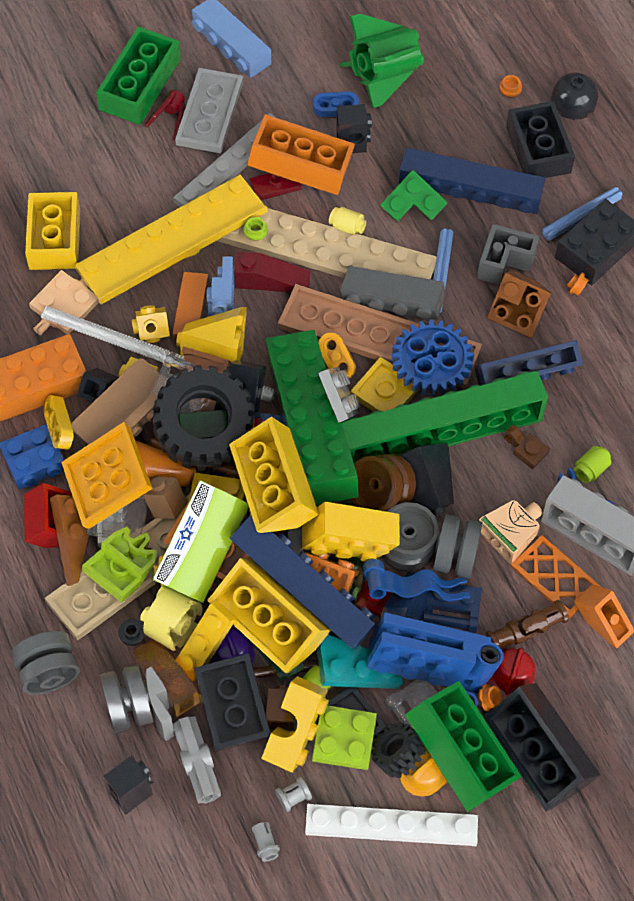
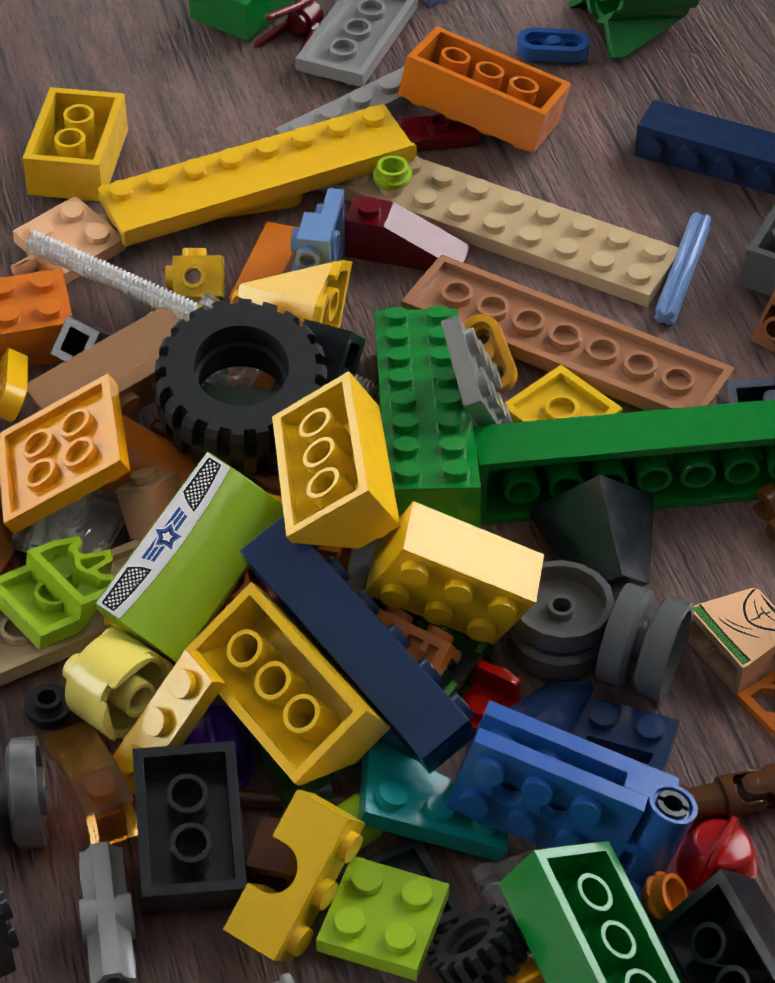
camera: 10 degrees right, 15 degrees down
(159, 704) = (61, 811): light grey slope -> none
(347, 220) = (542, 184): light yellow brick -> none
(354, 126) = (577, 50): black brick -> none
(381, 581) = (493, 668): blue flag -> none
(384, 482) = (534, 517): reddish brown wheel -> none
(394, 292) = (601, 280): dark grey brick -> none
(415, 192) = (655, 158): green plate -> none
(432, 357) = (646, 367): blue gear -> none

